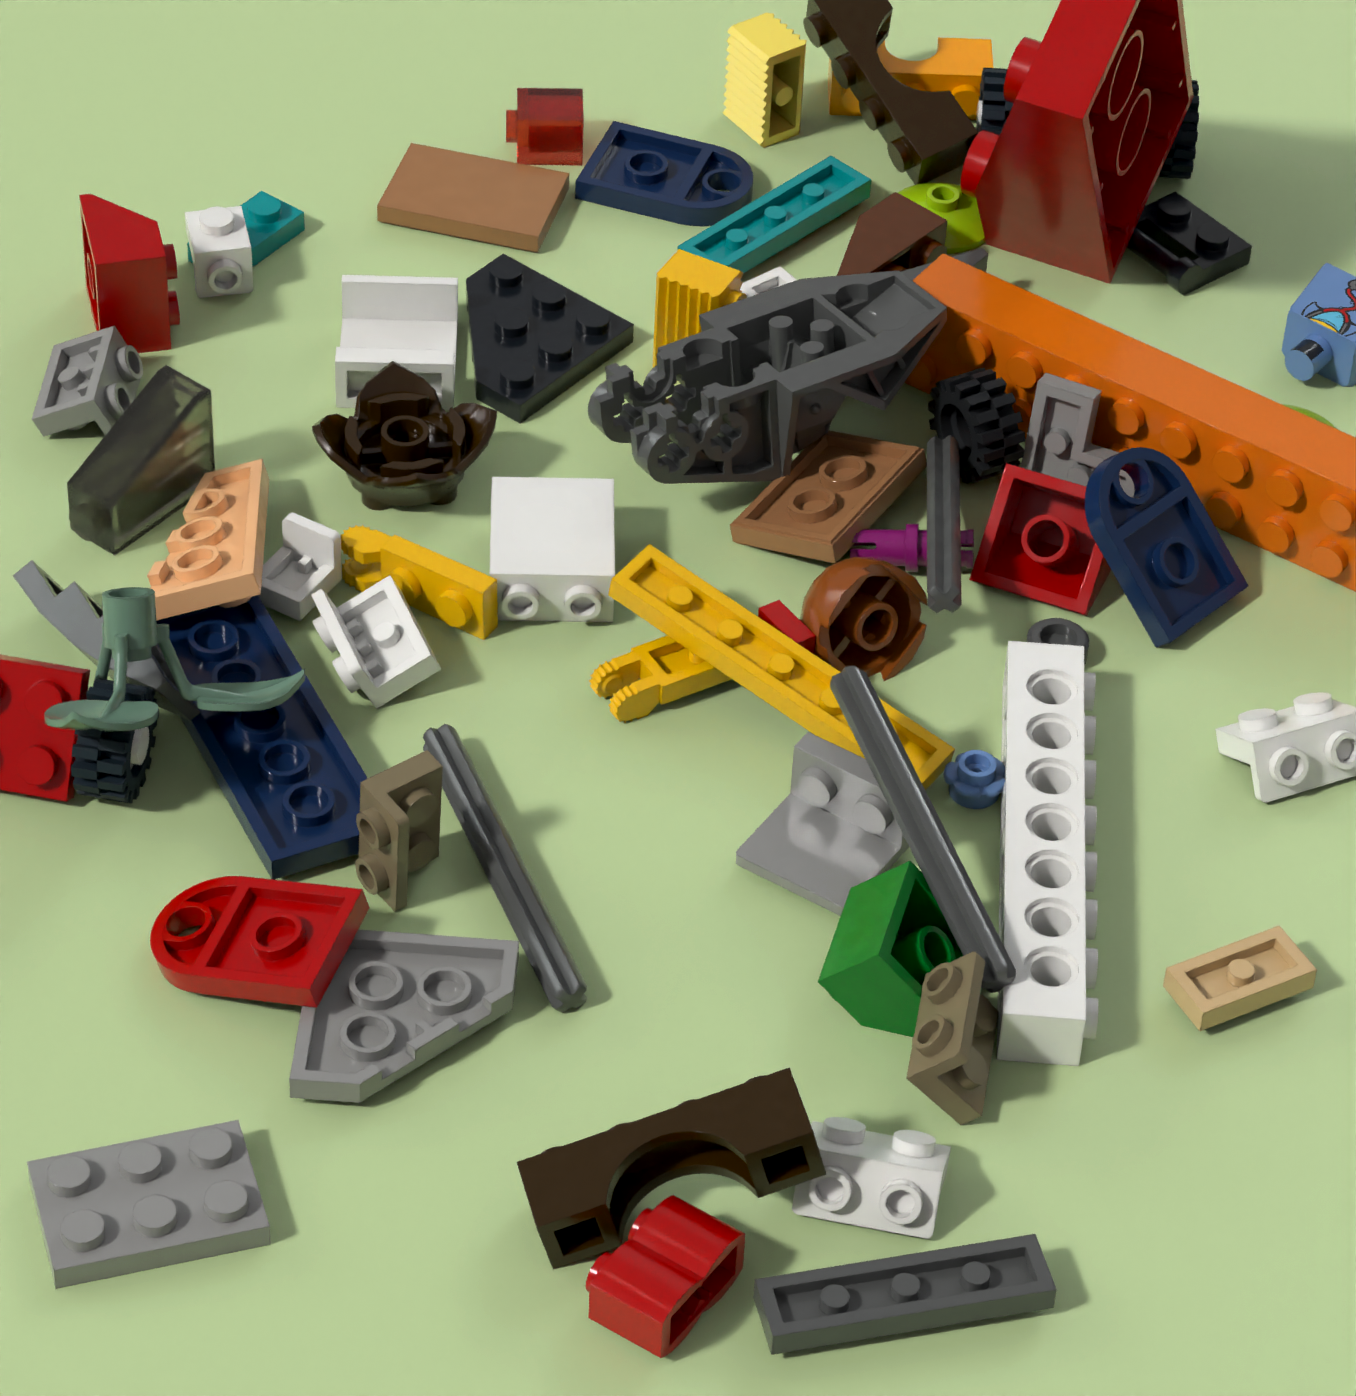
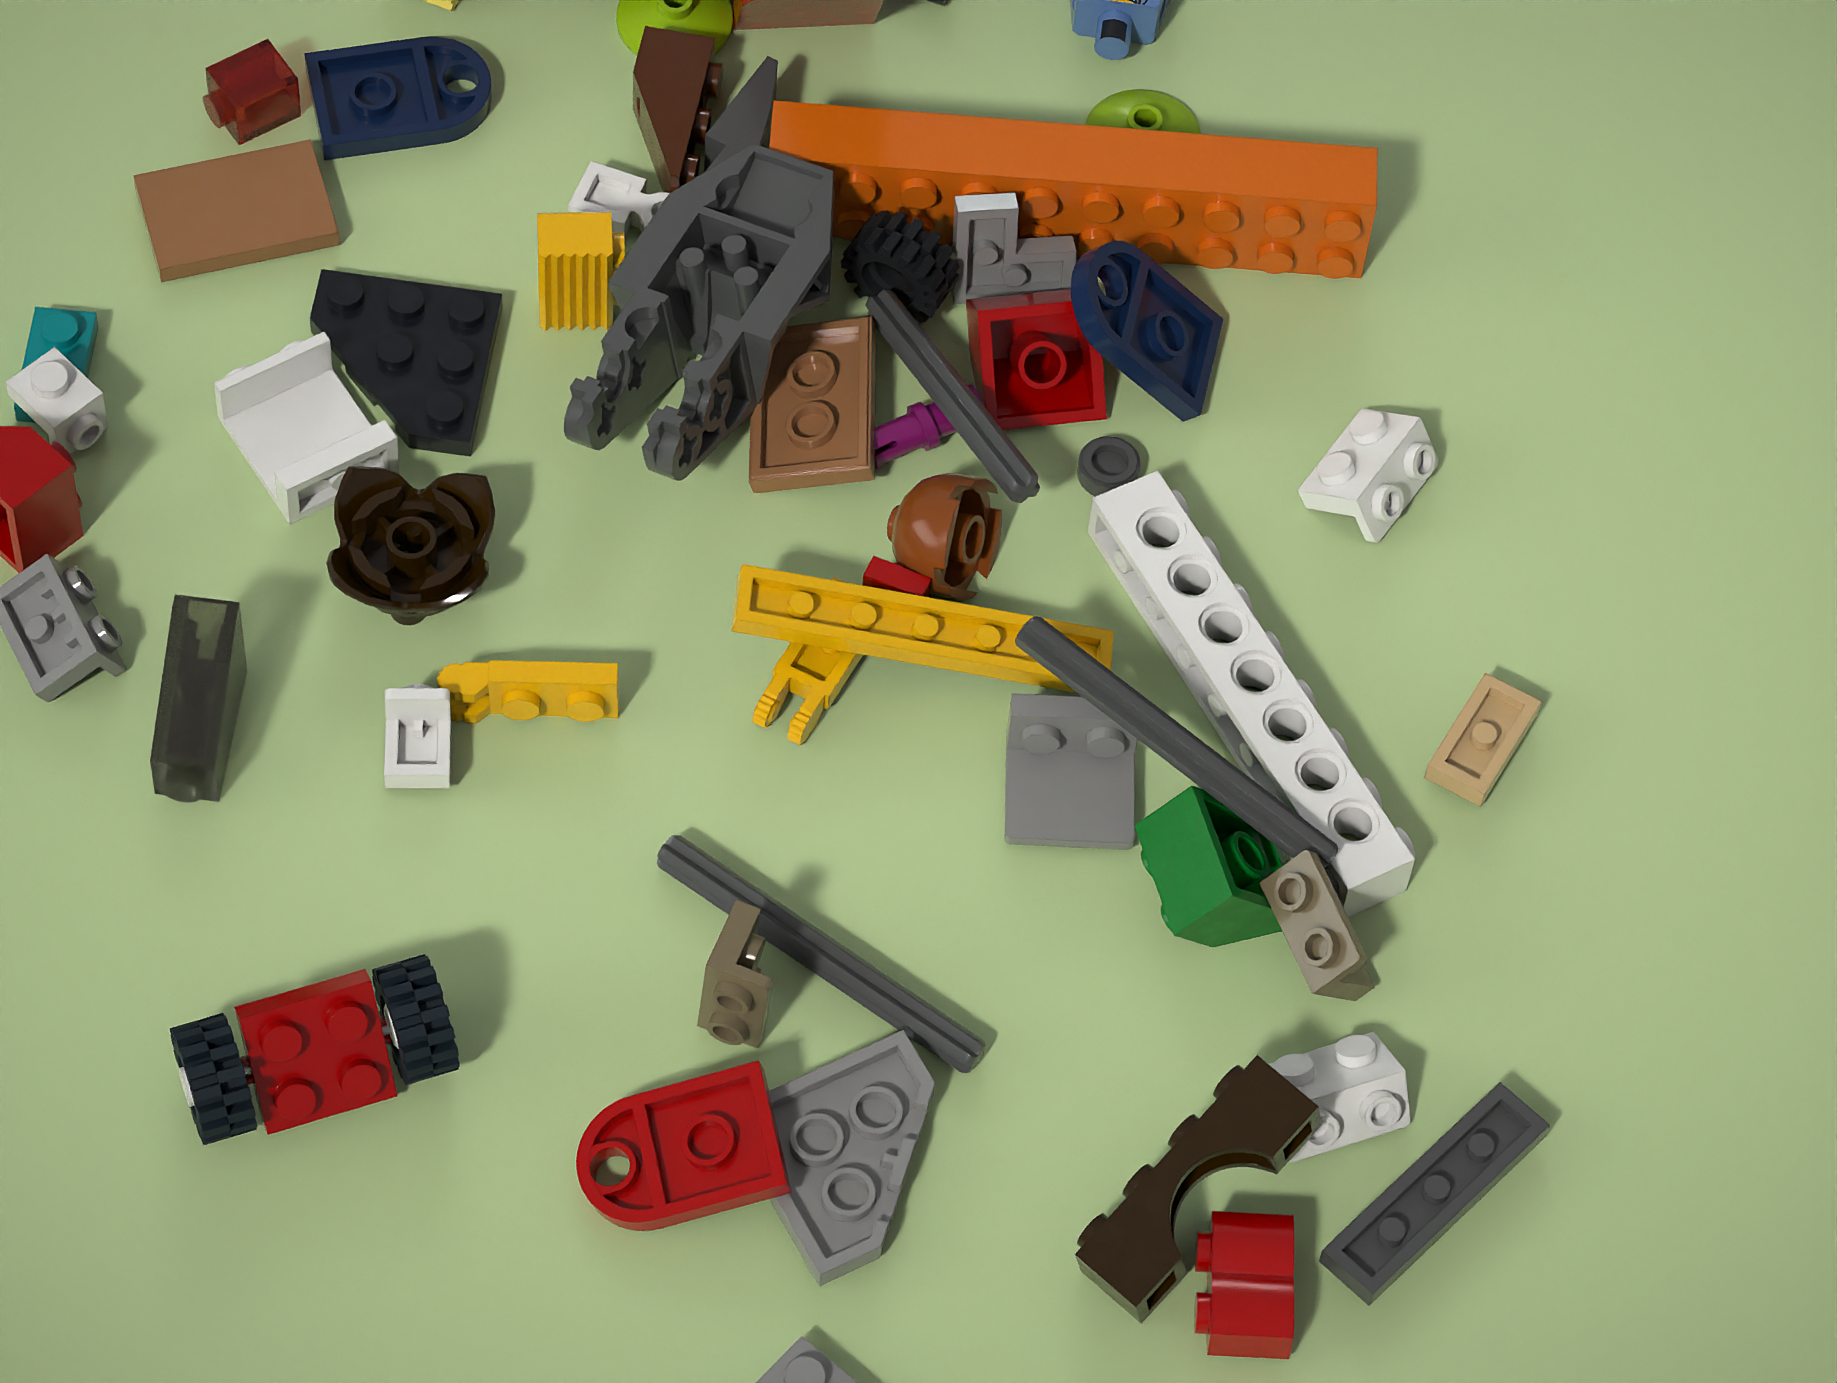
camera: 35 degrees left, 15 degrees up
(81, 622) = (336, 916): slope -> none
(127, 636) = (394, 917): sand green plant -> none
(219, 548) = (338, 763): light nougat wing -> none
(276, 766) = (511, 925): dark blue plate -> none
(376, 640) = (546, 776): white bracket -> none
(553, 548) = (625, 590): white panel -> none
(782, 216) = (540, 105): teal plate -> none
(975, 779) = (1137, 660): medium blue plate -> none

